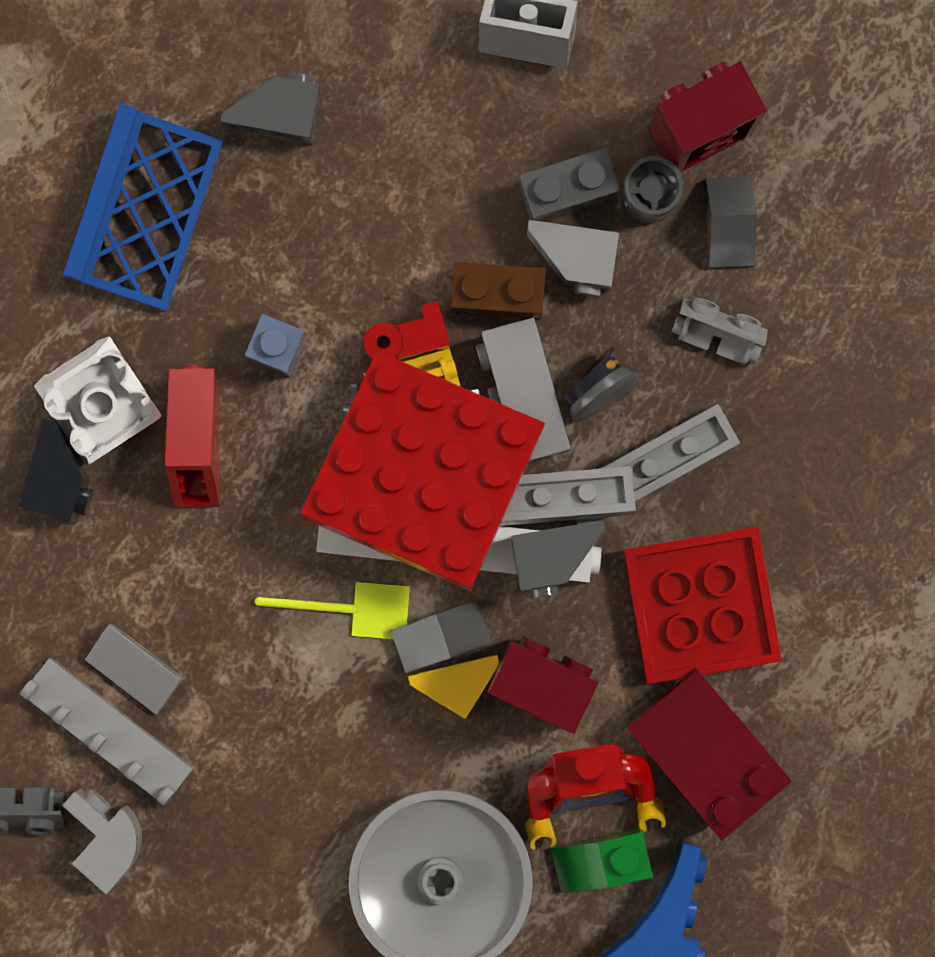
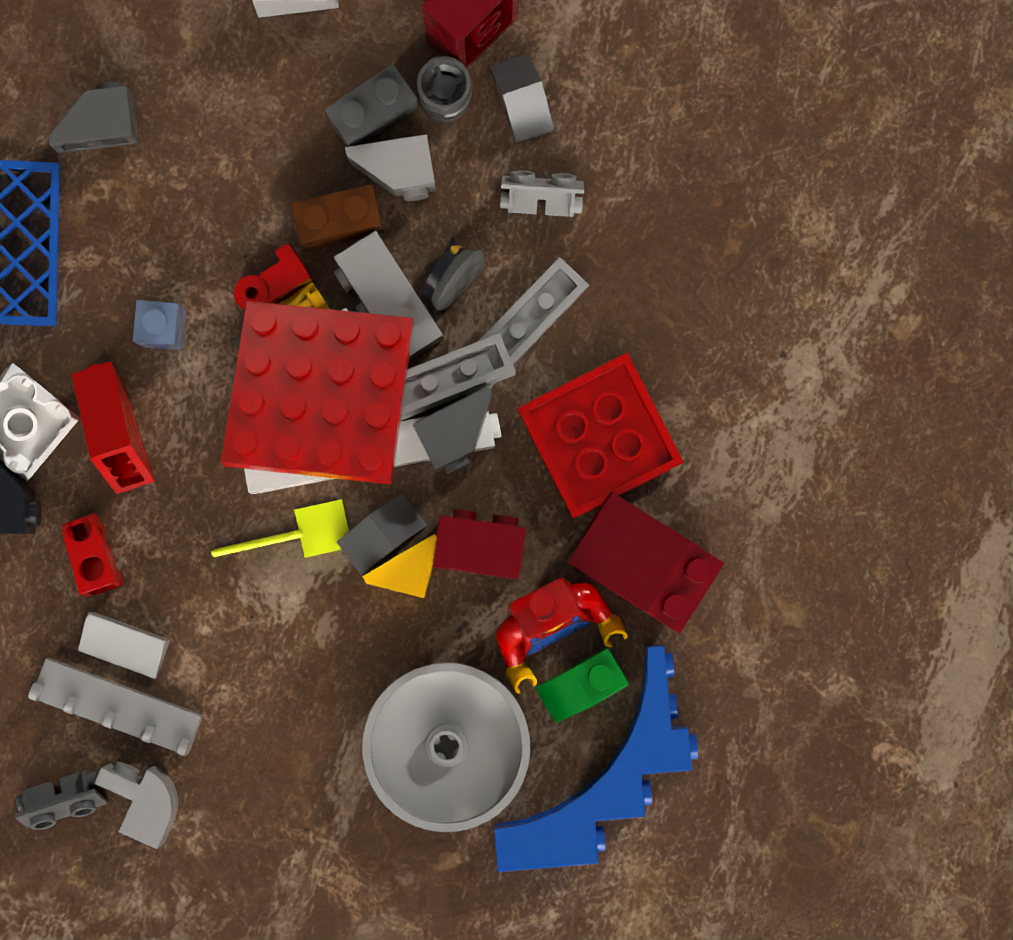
camera: 20 degrees left, 0 degrees up
(129, 565) = (91, 556): none -> red leg

